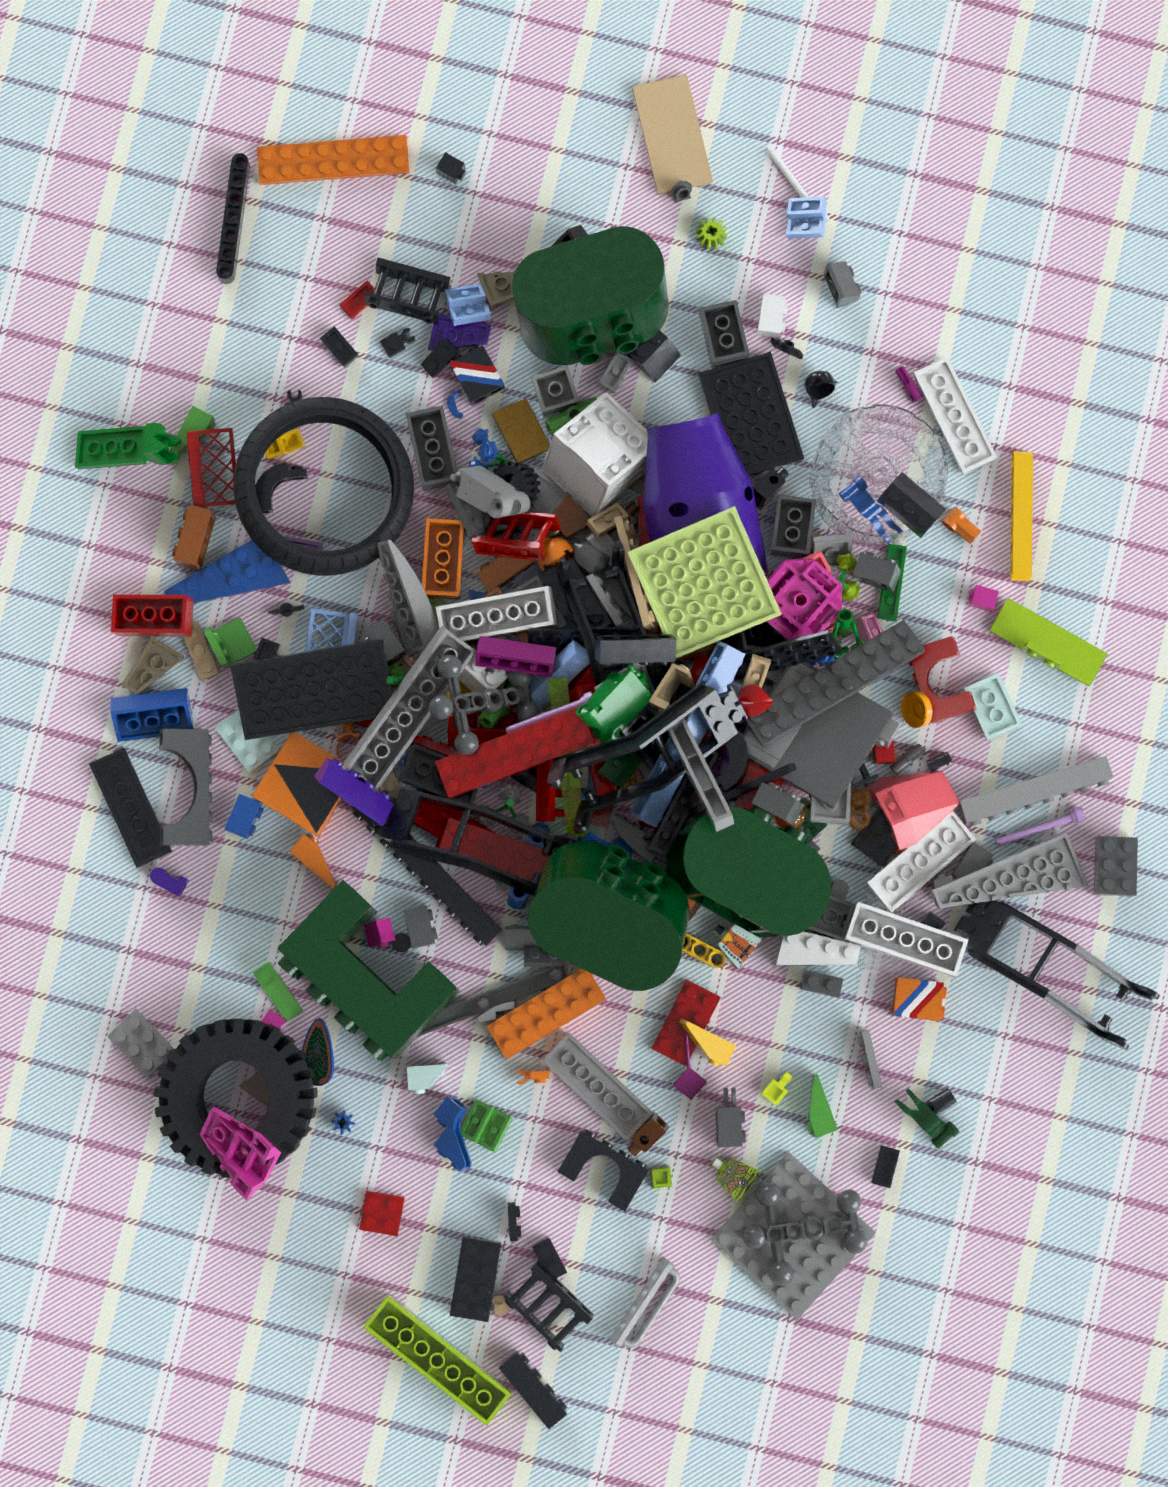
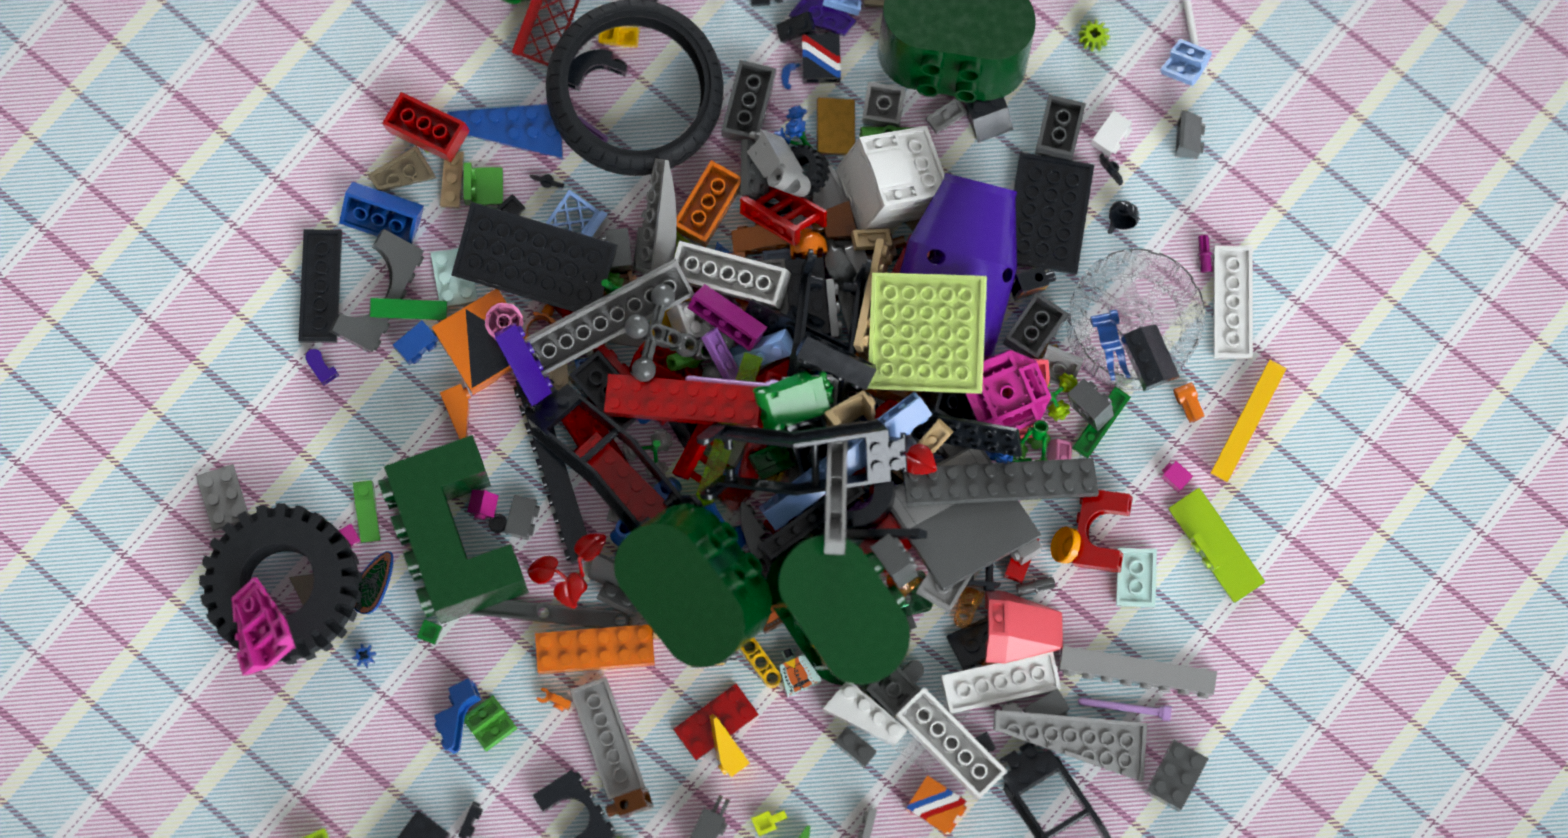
camera: 25 degrees right, 5 degrees down
(194, 537) = (497, 77): dark orange brick -> none
(221, 790) = (408, 309): none -> green tile
(309, 754) = (502, 314): none -> bright pink cylinder
(382, 1213) = (357, 754): red plate -> none
(390, 1071) = (429, 632): none -> green plate
(424, 1077) = (457, 650): light aqua slope -> none
(491, 1015) = (546, 625): light grey slope -> none
(501, 972) = (571, 589): none -> red plant
(526, 693) = (720, 354): none -> medium lavender tile
(689, 1082) = (692, 776): magenta piece -> none
(939, 761) = (1063, 602): black pin -> none

